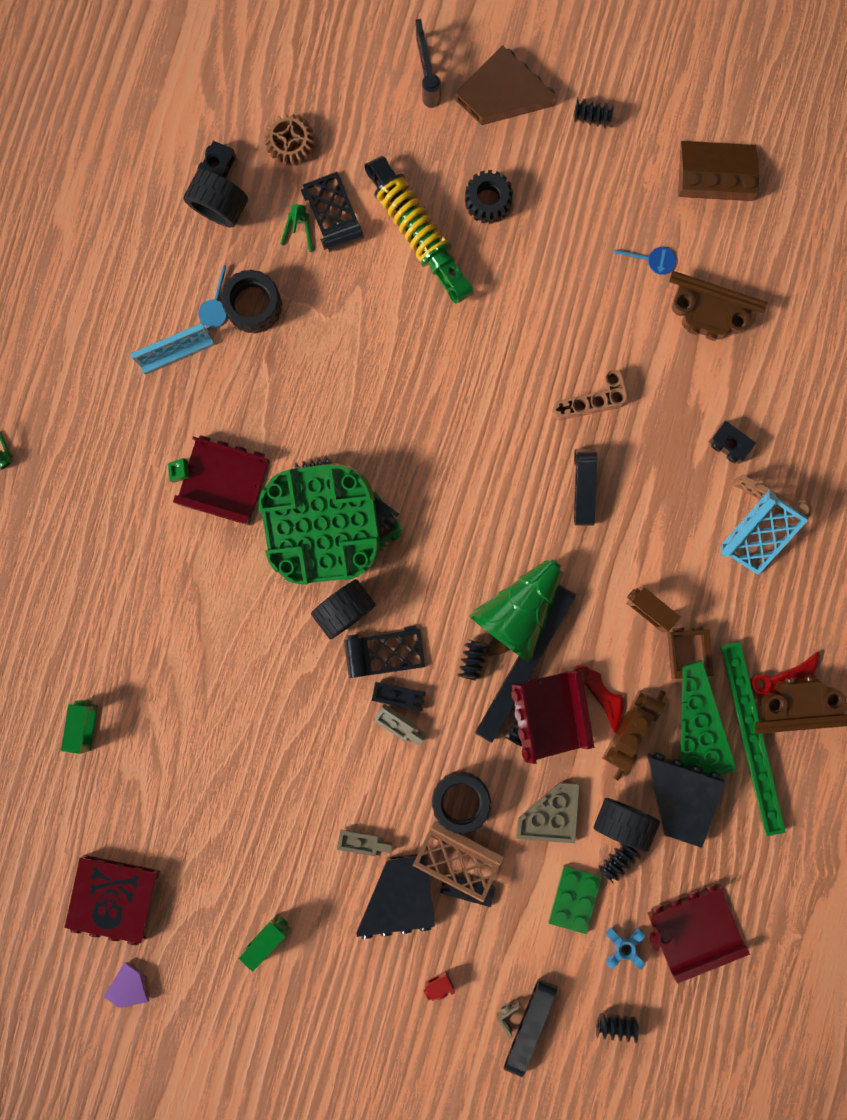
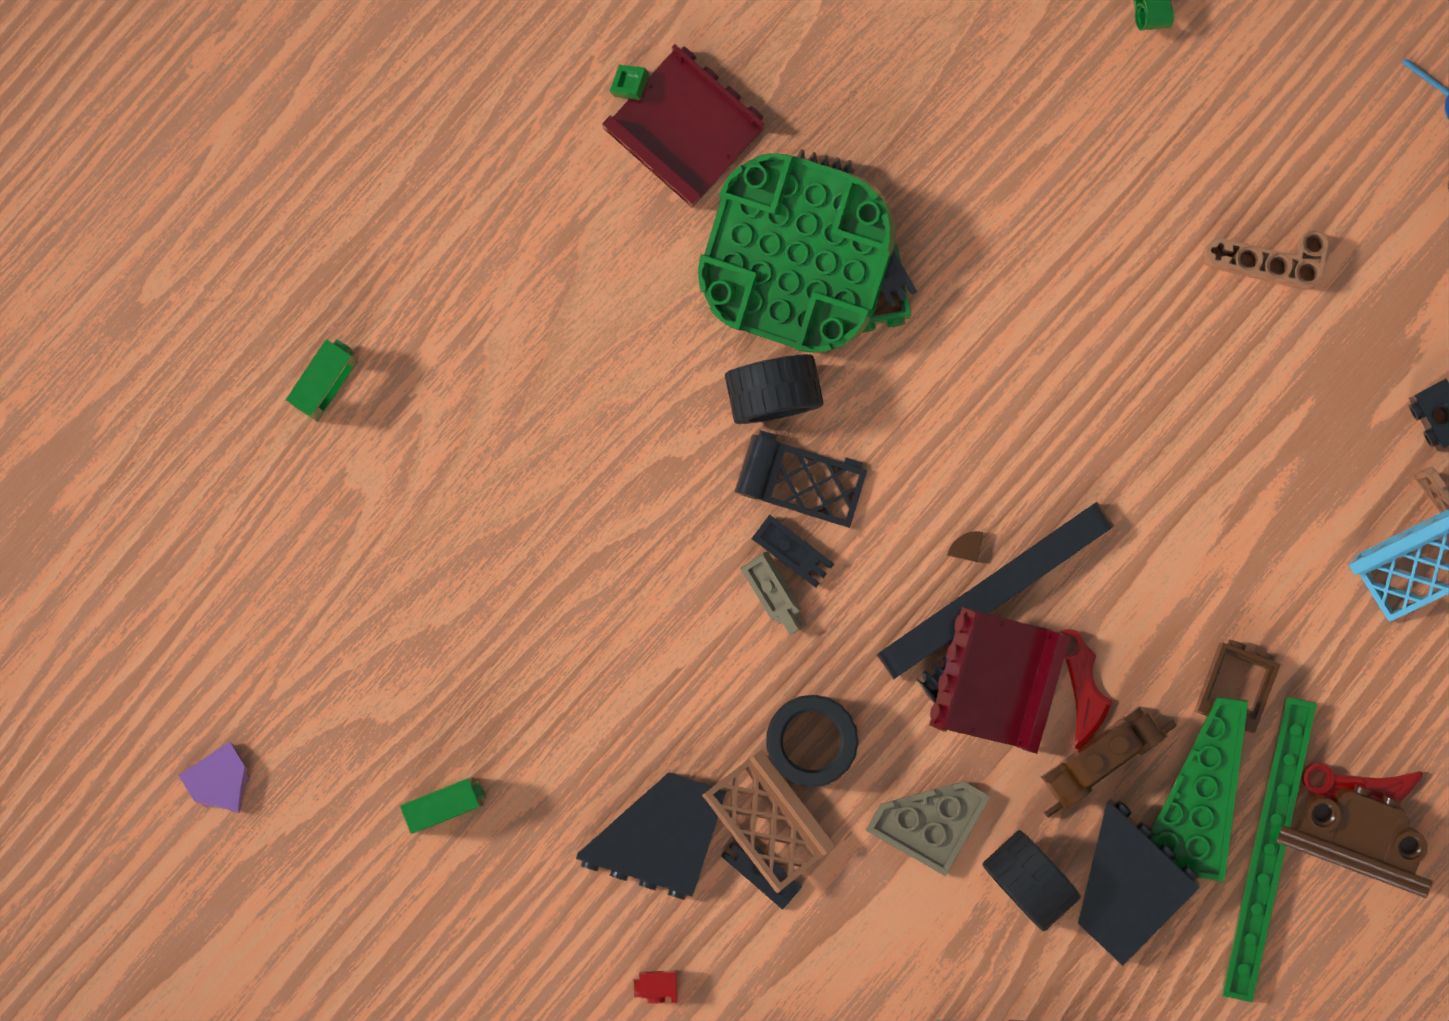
camera: 20 degrees right, 0 degrees up
(111, 899) = (252, 644): dark red panel -> none
(362, 843) = (643, 734): dark tan hinge -> none
(473, 659) = (922, 550): black piece -> none
(522, 609) = (1027, 509): green cone -> none
(574, 899) = (907, 956): green plate -> none
(585, 486) = (1200, 378): black beam -> none
(619, 862) = (995, 931): black piece -> none
(652, 609) = (1213, 597): reddish brown window -> none

